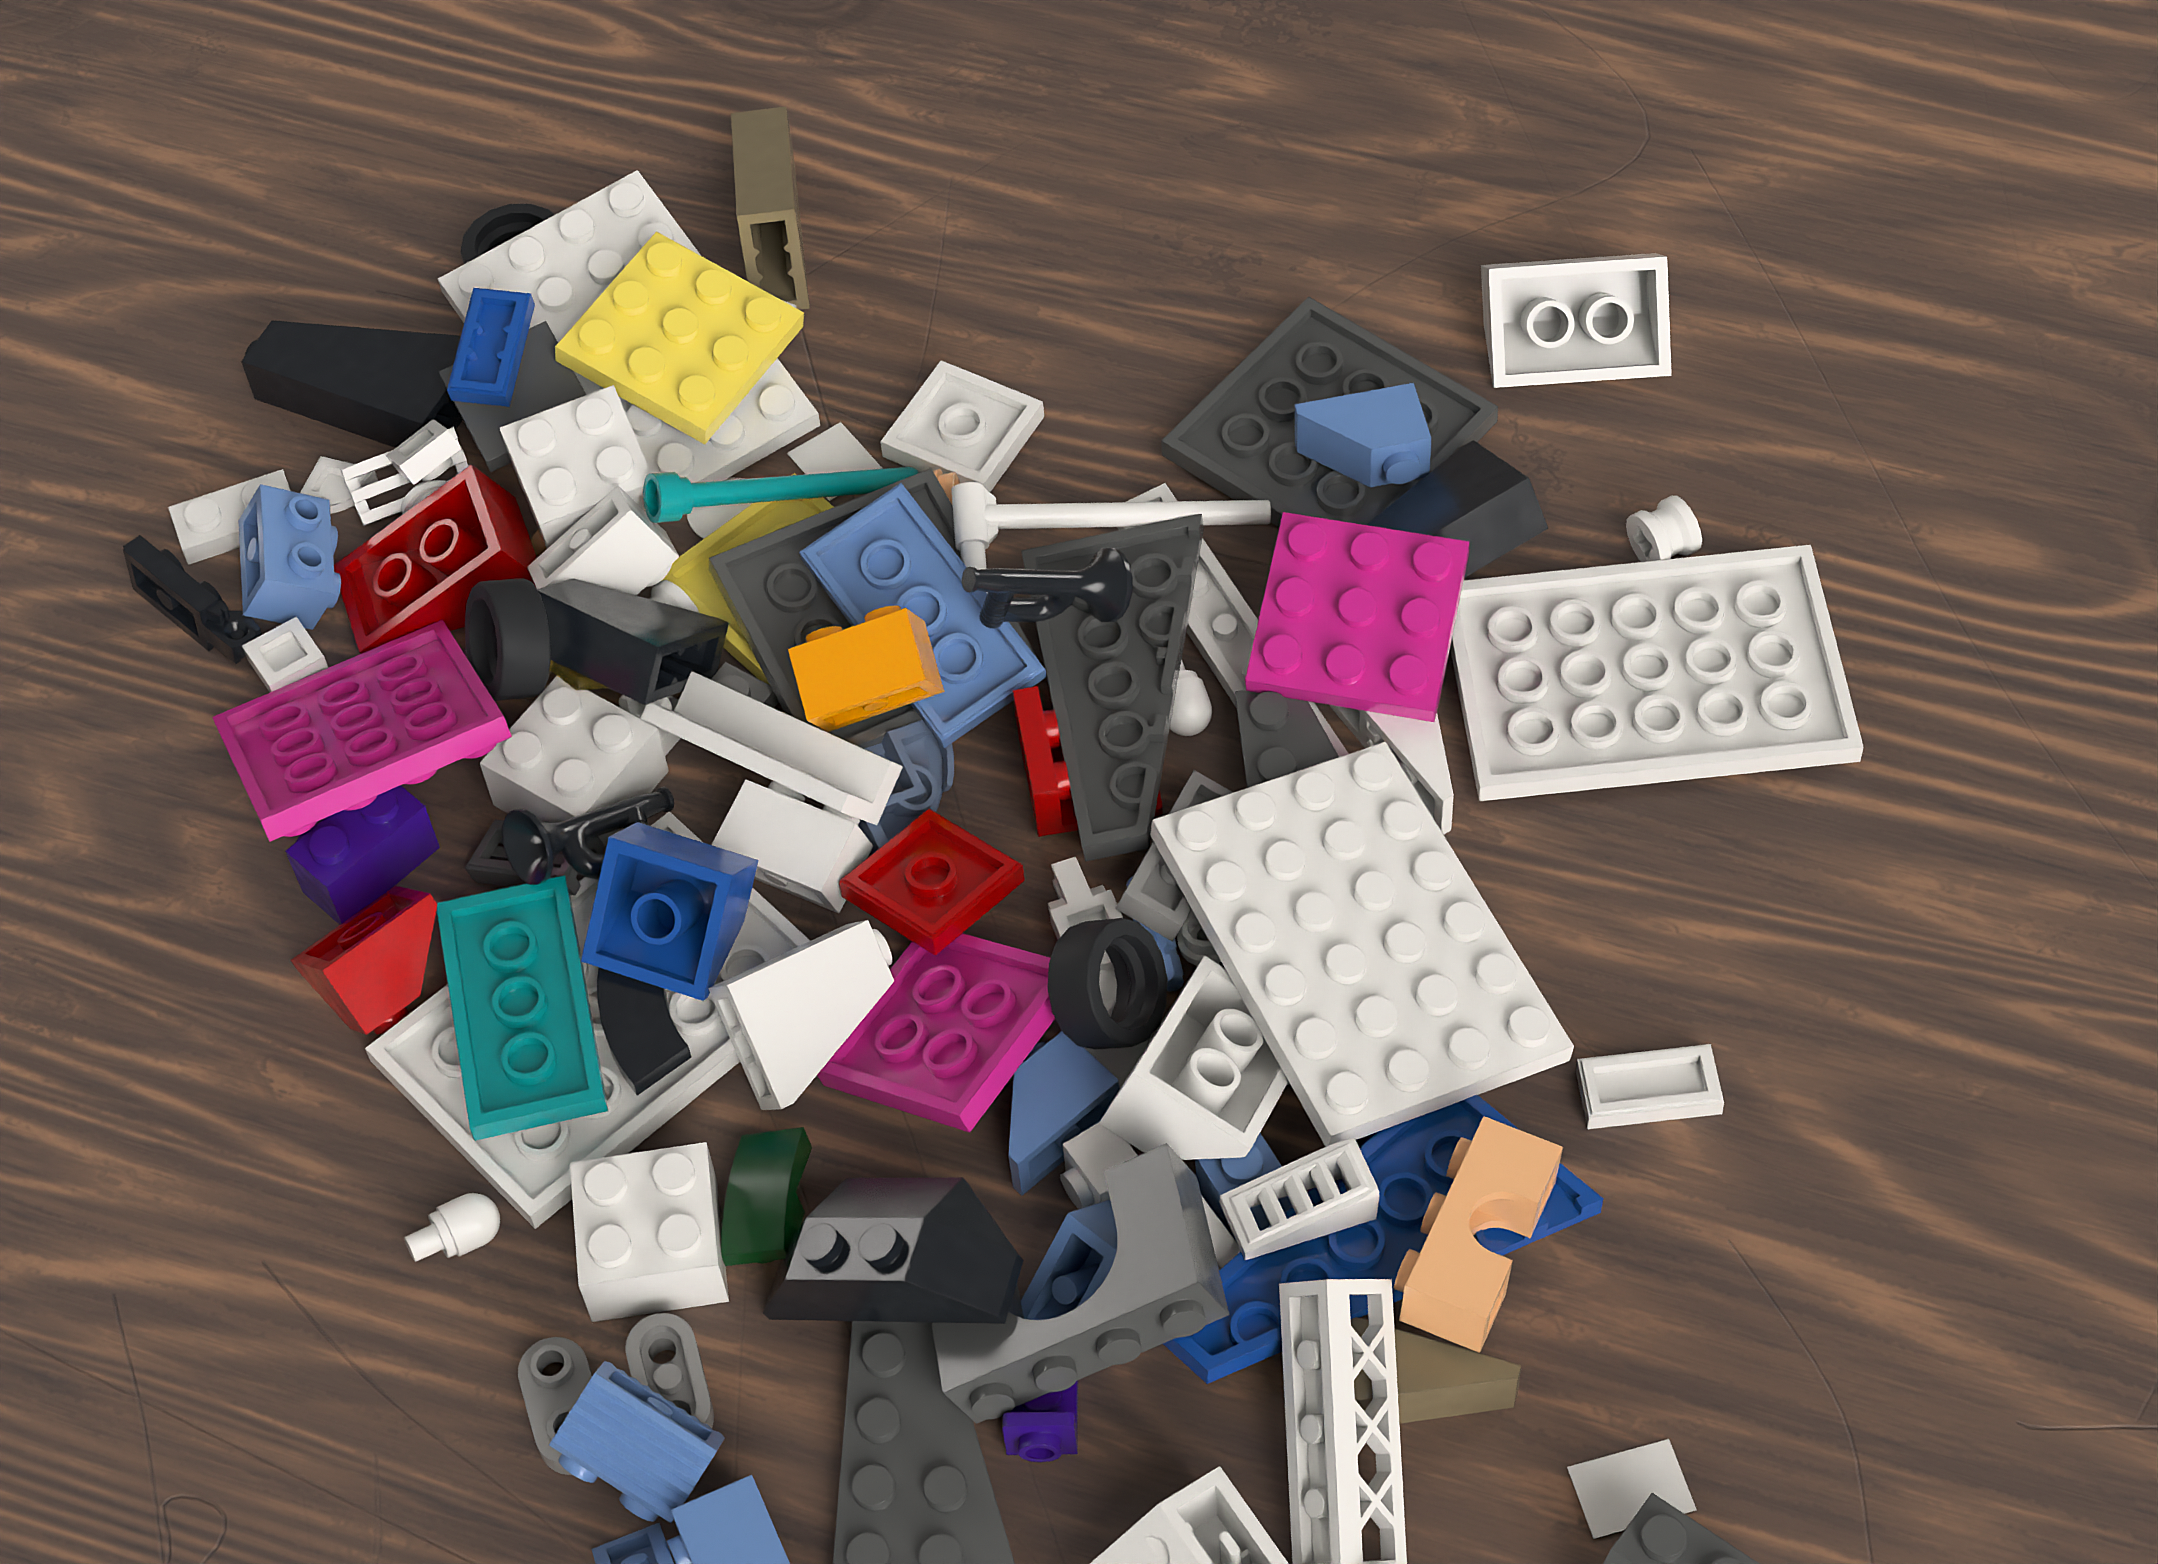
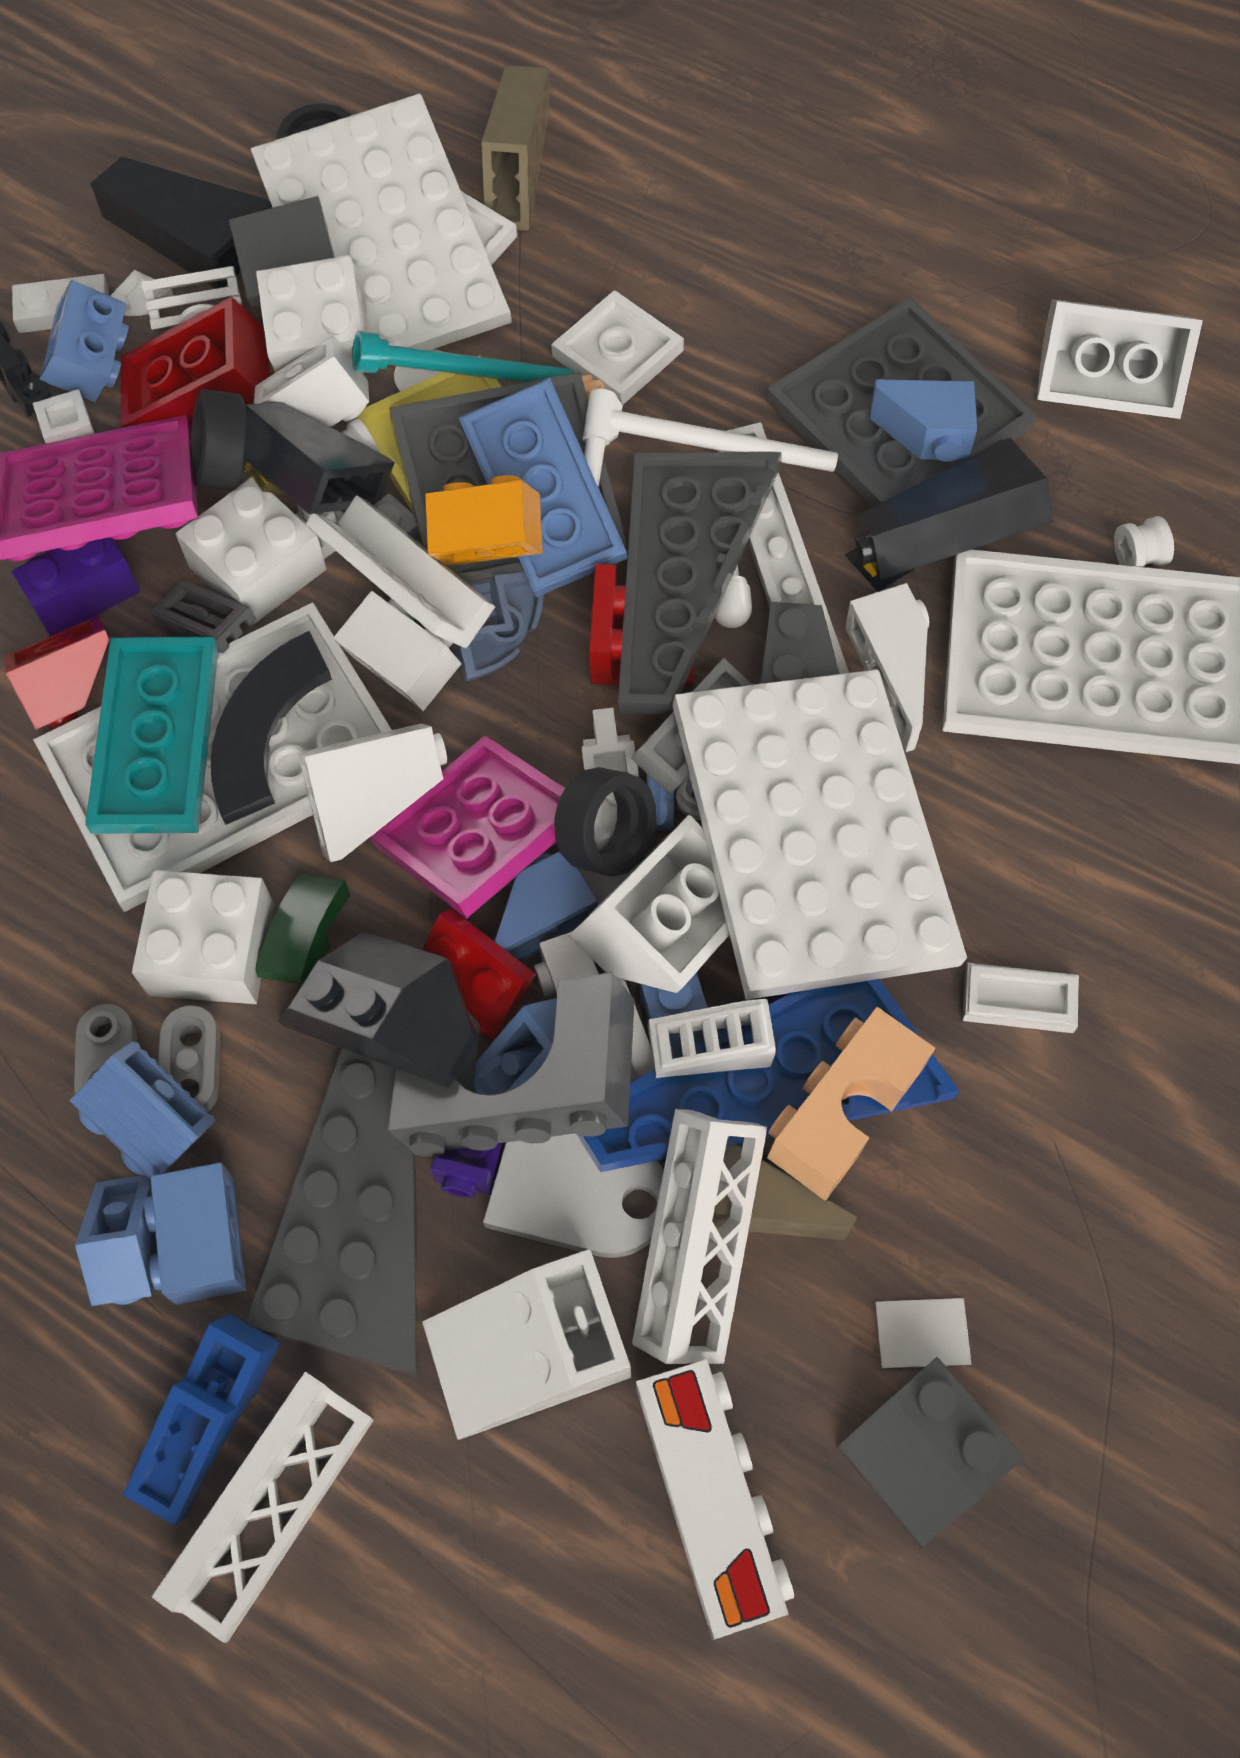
camera: 10 degrees right, 10 degrees up
(425, 453) = (203, 282): white plate -> none
(456, 1227) = (64, 898): white cylinder -> none
(491, 347) = (269, 207): blue plate -> none
(535, 844) = (195, 608): black piece -> none
(667, 909) = (281, 681): blue slope -> none
(679, 337) = (416, 229): light yellow plate -> none
(833, 452) = (516, 345): white sticker -> none
(932, 881) = (496, 703): red tile -> none
(1014, 1191) = (487, 974): none -> red plate
(1103, 585) = (686, 493): black piece -> none
(1163, 1427) = (563, 1200): none -> white tile
(1358, 616) = (882, 562): dark pink plate -> none

